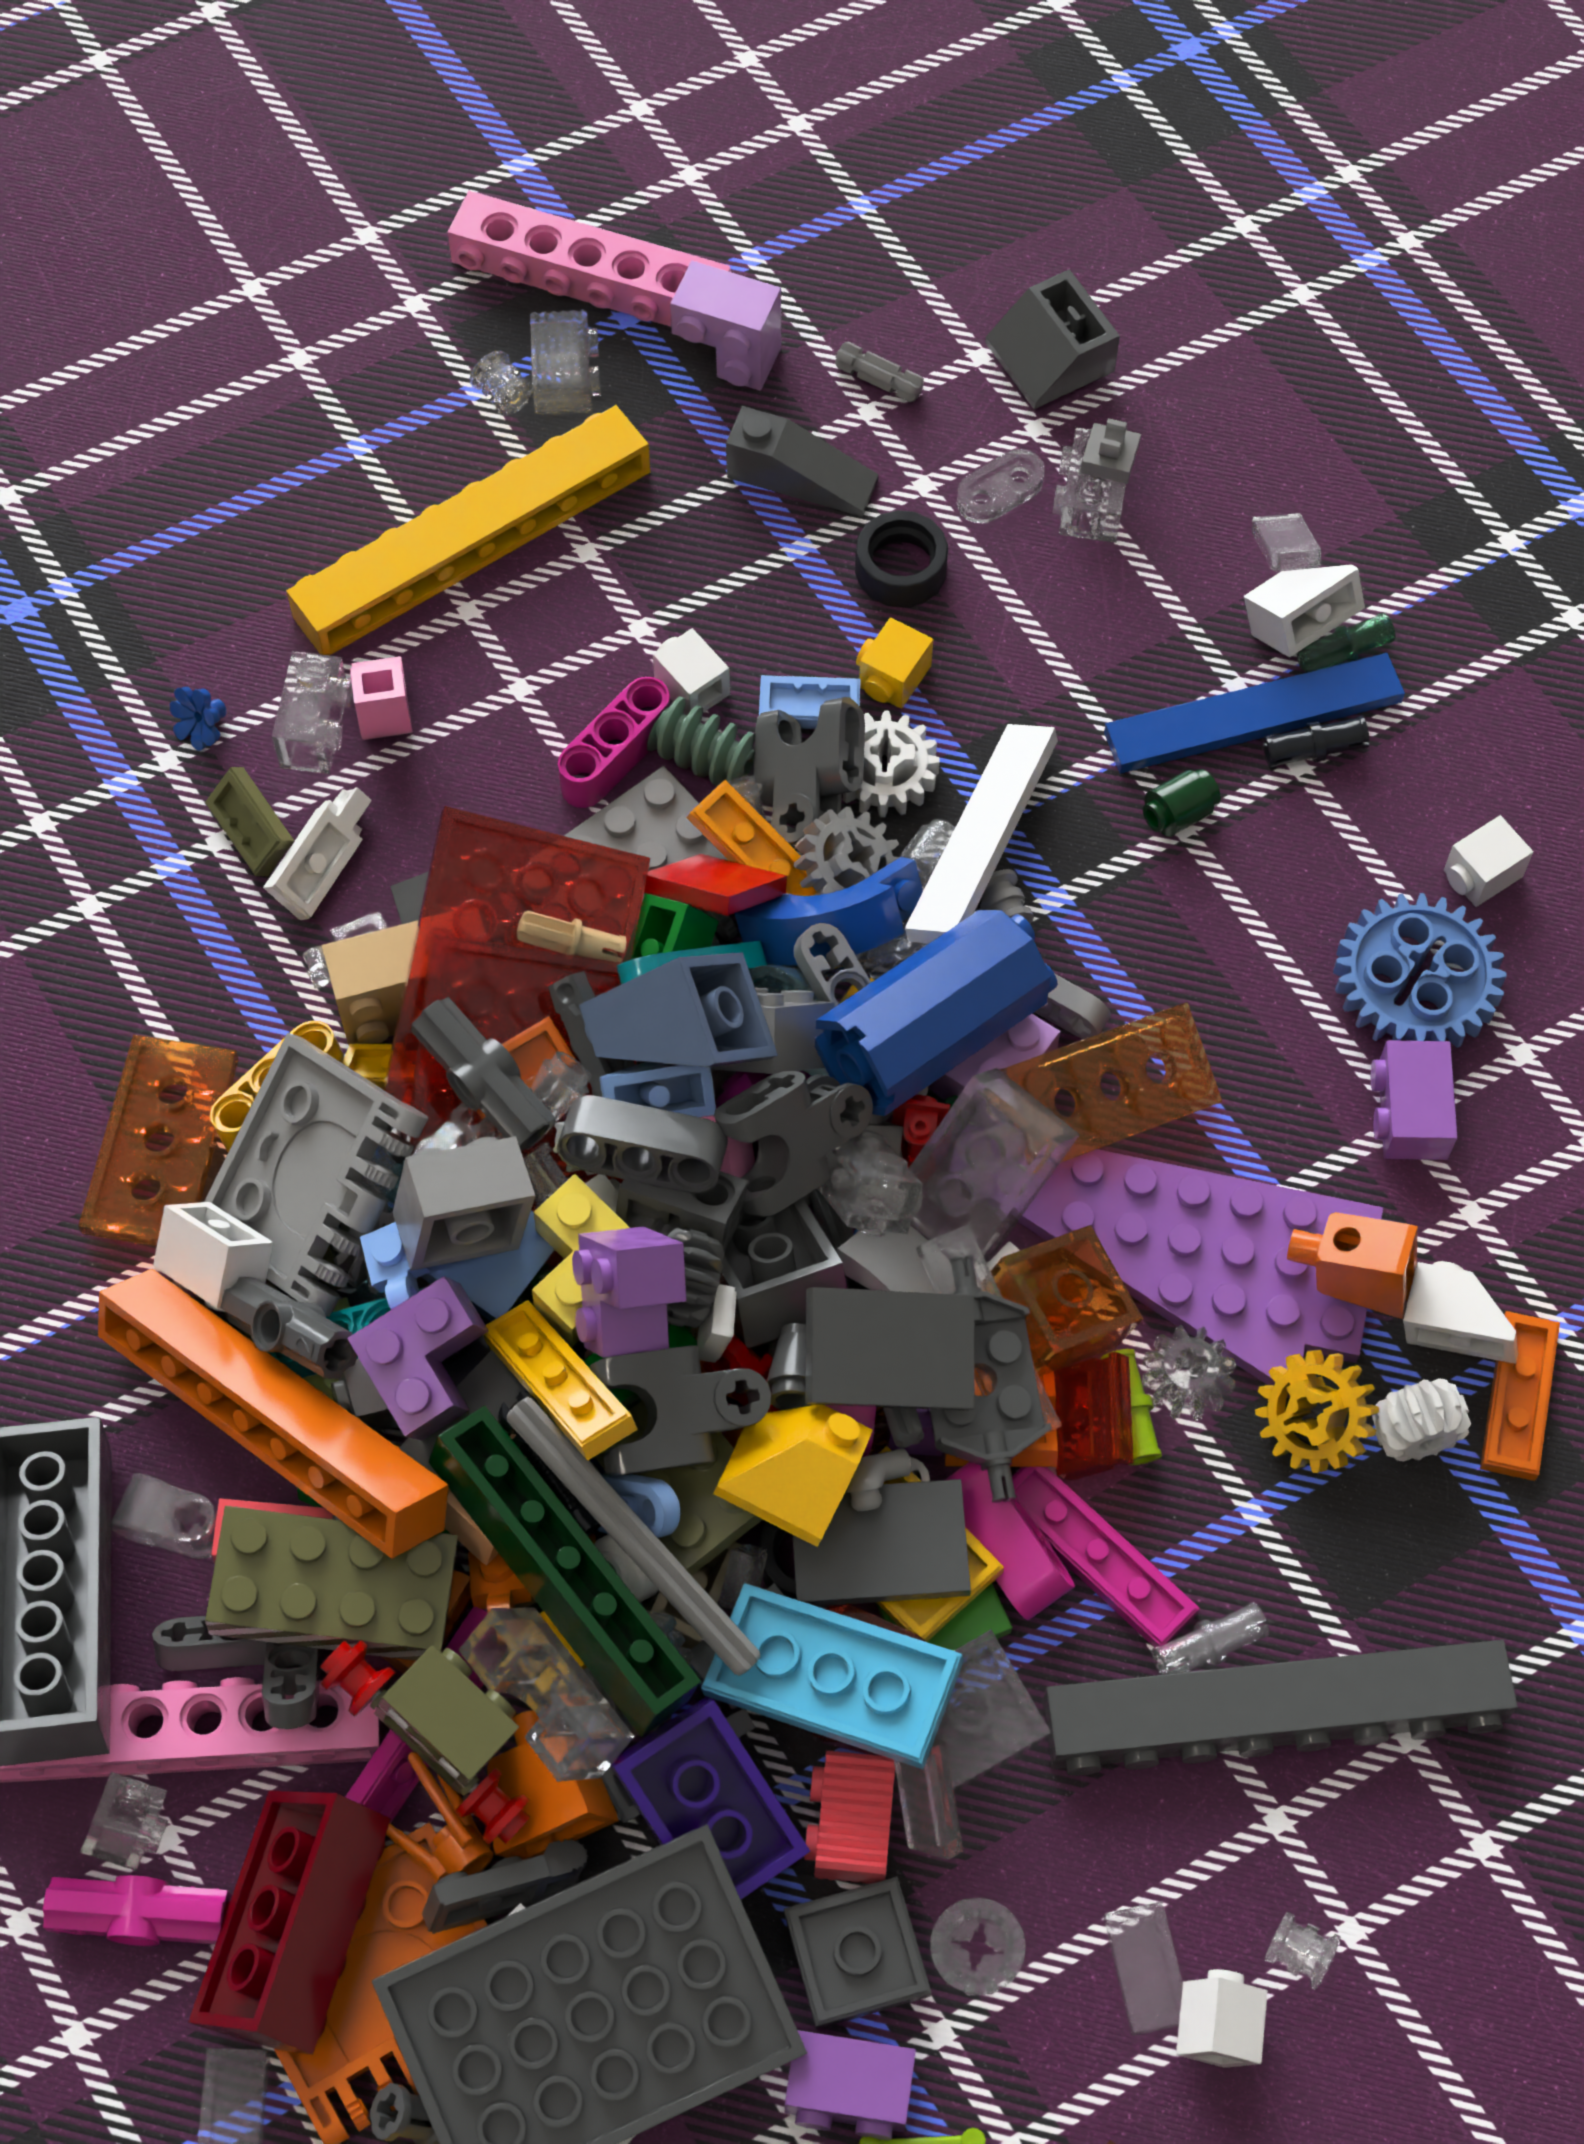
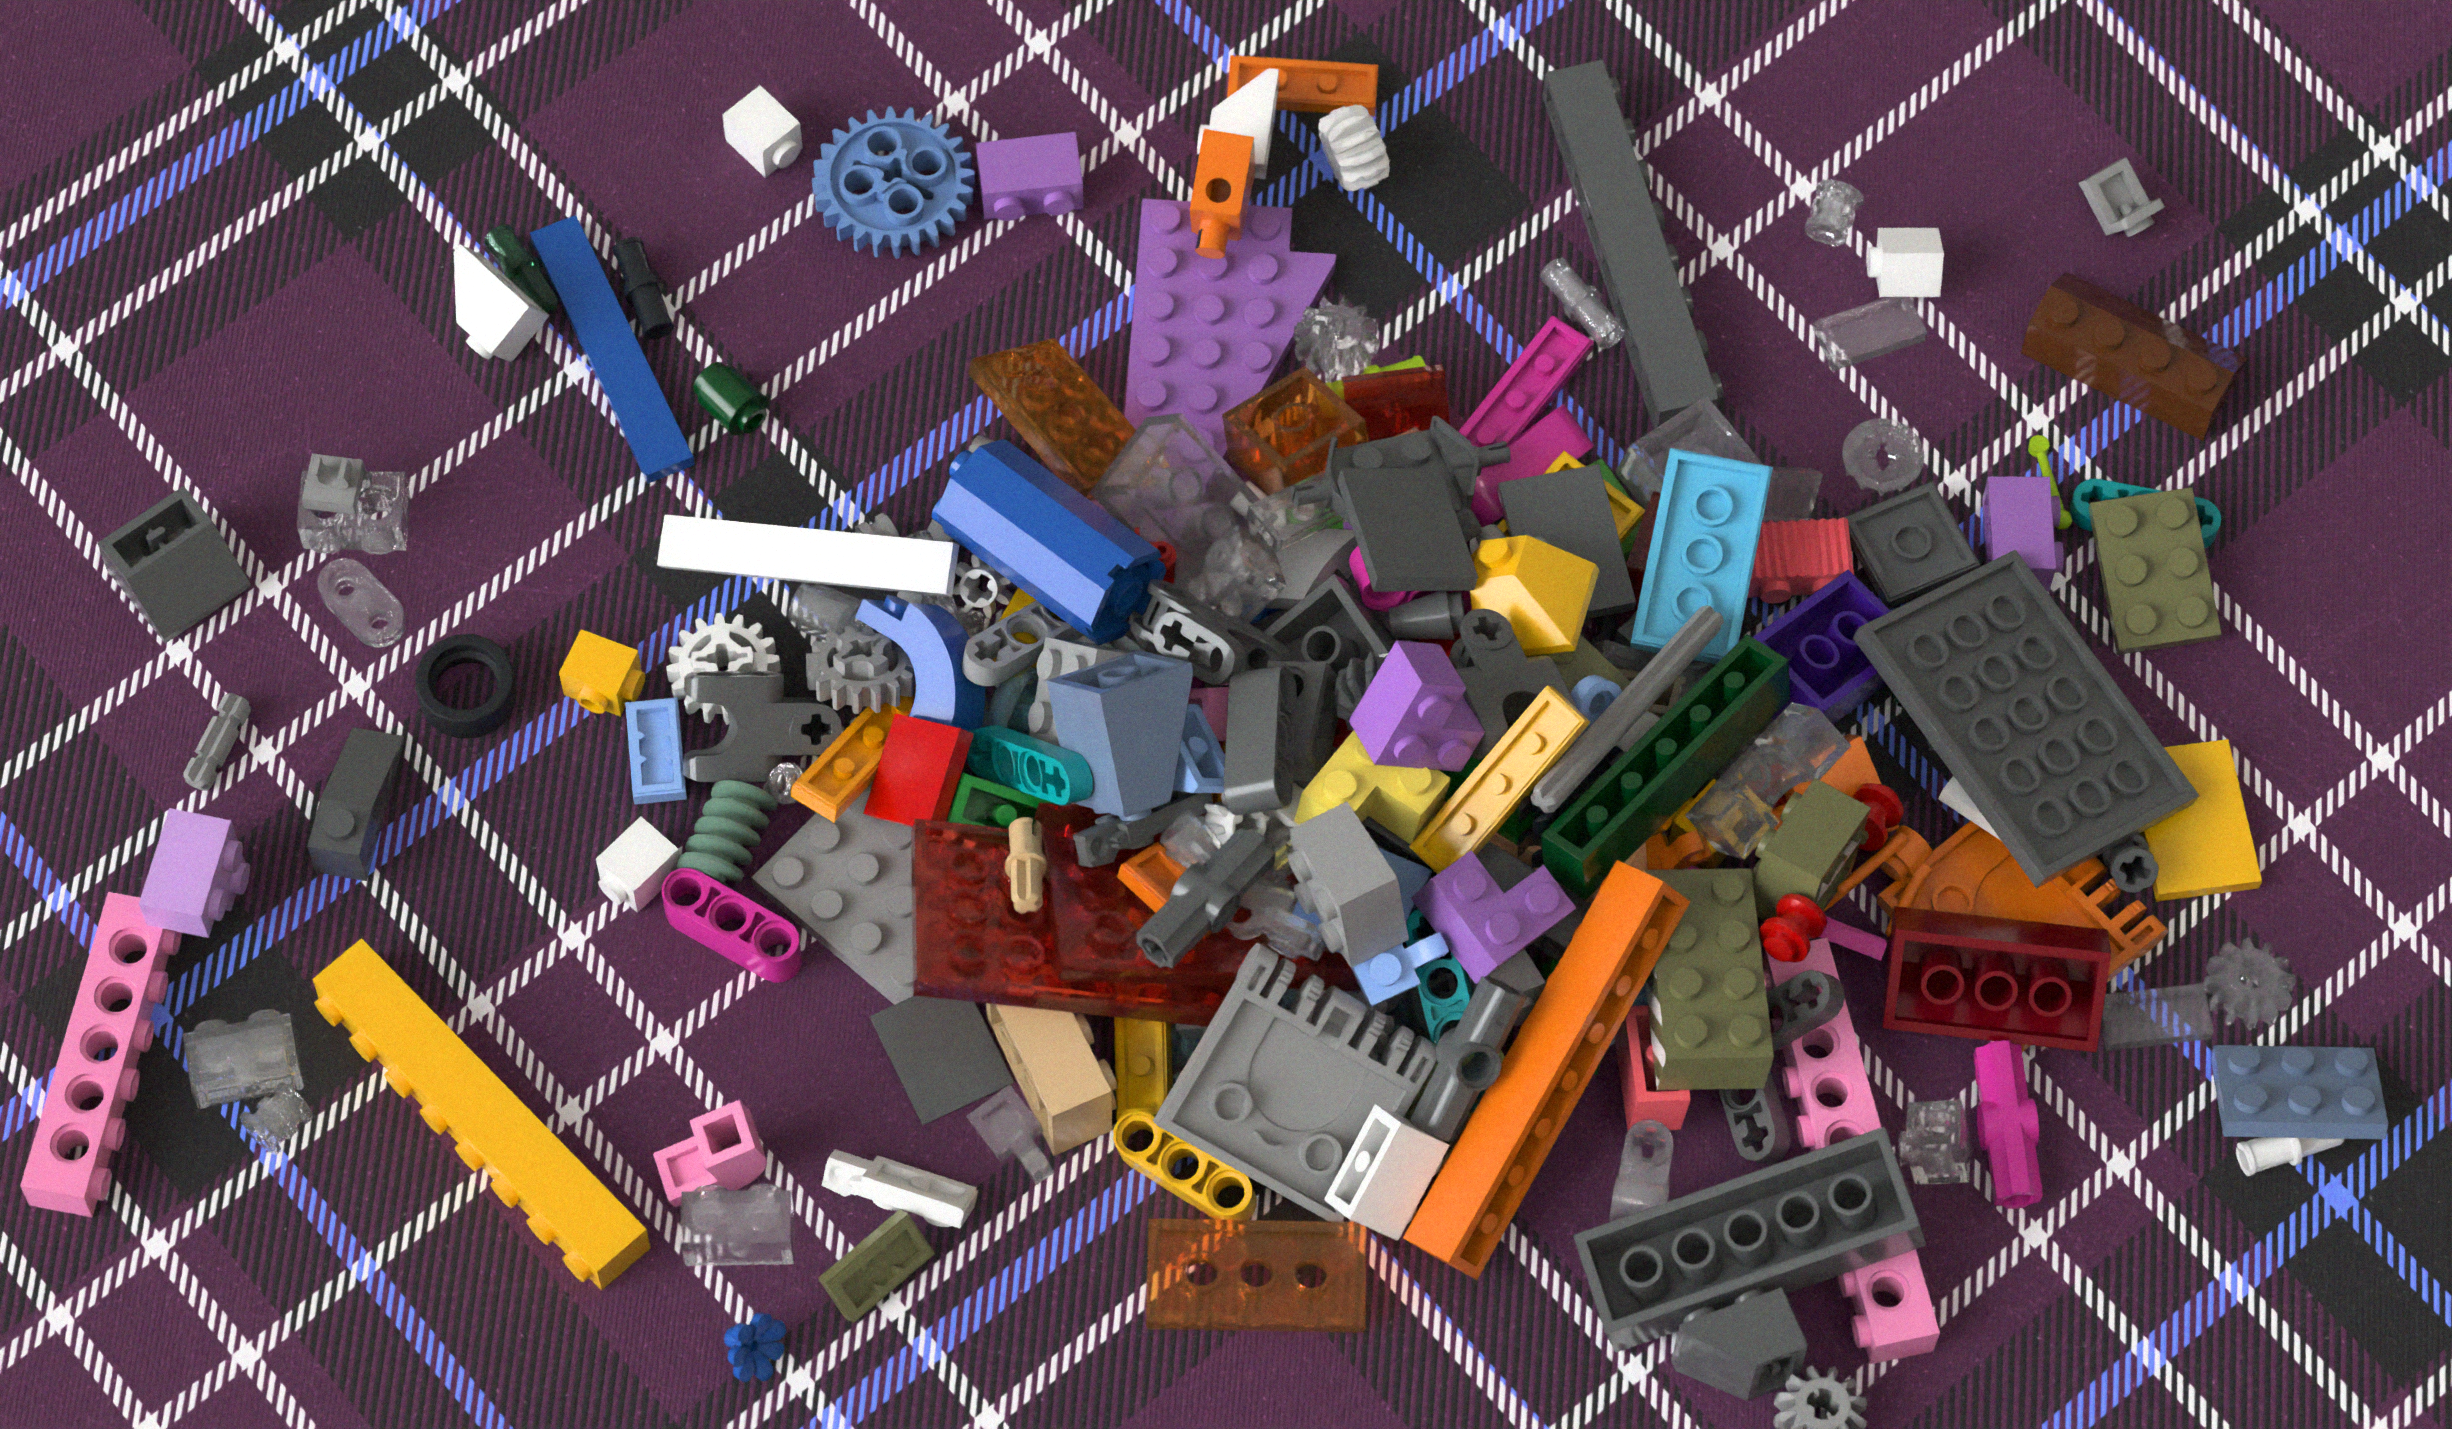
camera: 100 degrees left, 0 degrees up
(489, 1893) = (1925, 813): dark grey hinge -> none
(1286, 542) = (412, 325): clear tile -> none
(1328, 1428) = (1340, 226): yellow gear -> none

